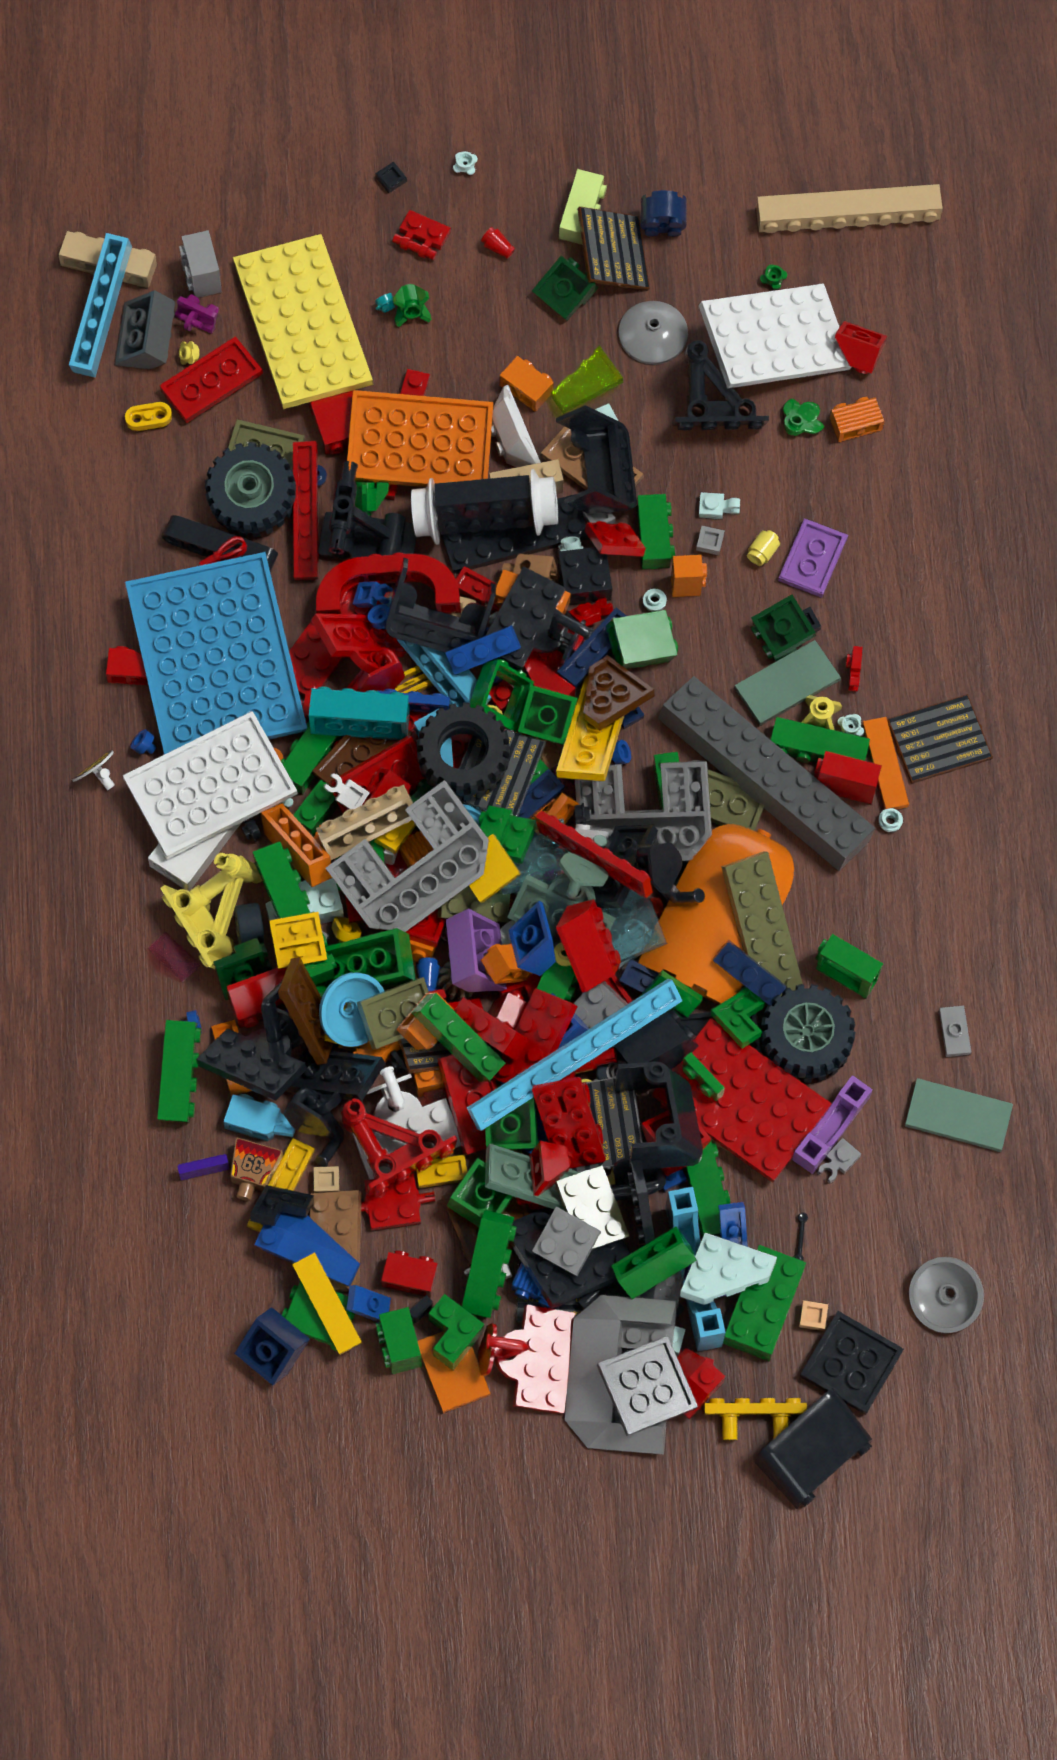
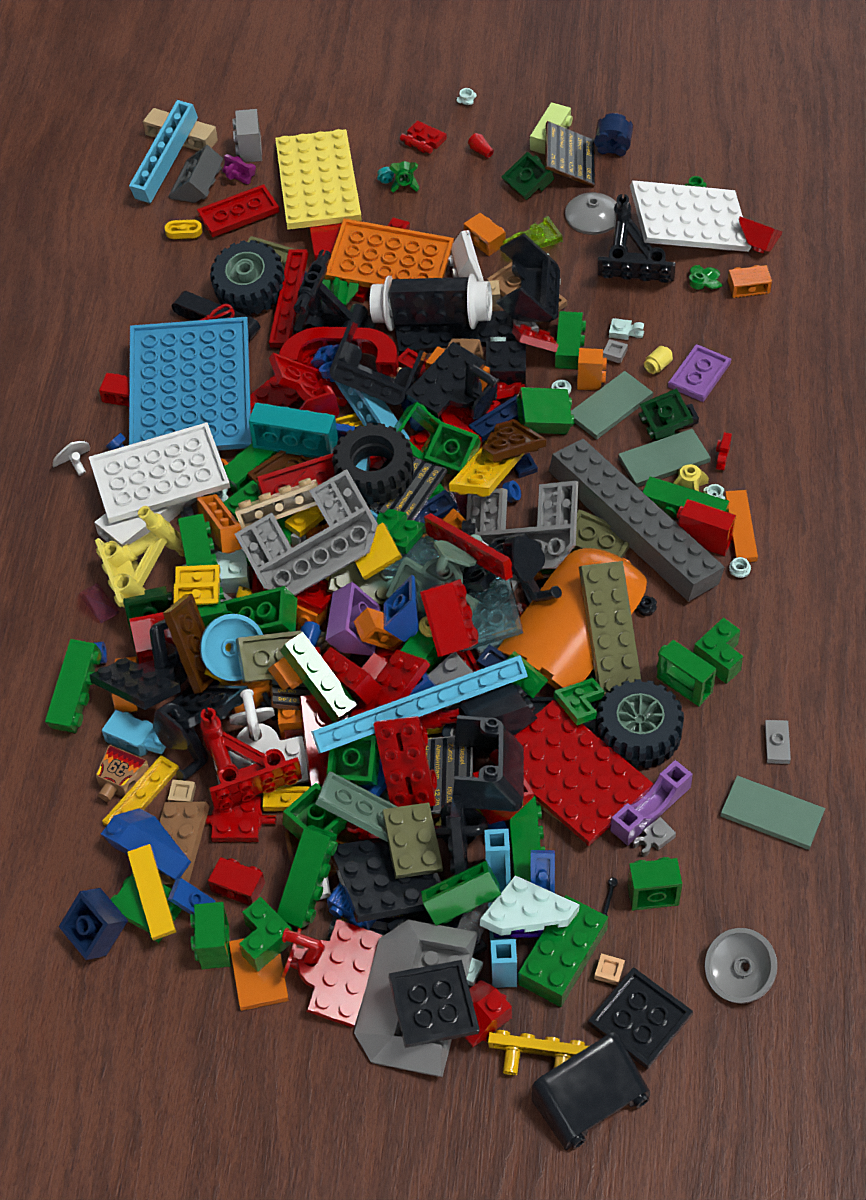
camera: 15 degrees right, 15 degrees down
(188, 353) = (225, 191): light yellow plate -> none
(203, 1167) = (75, 767): dark purple tile -> none
(248, 923) = (164, 576): black wheel -> none
(278, 1200) = (130, 800): black plate -> none
(349, 794) = (268, 484): white plate -> none
(391, 177) = (408, 101): black tile -> none
(421, 1309) = (235, 913): black tile -> none
(483, 650) = (407, 395): blue plate -> none
(548, 1165) = (379, 795): red slope -> none
(566, 1241) = (382, 862): light grey plate -> none
(696, 1070) = (539, 746): green plate -> none
(716, 616) = (610, 405): none -> sand green tile
(749, 972) = (592, 662): dark blue plate -> none
(799, 884) = (647, 610): none -> black plate
(848, 1217) = (654, 883): none -> green brick
(849, 208) = (762, 146): tan brick -> none
(876, 931) = (718, 650): none -> green brick
(939, 738) = (791, 513): piece -> none

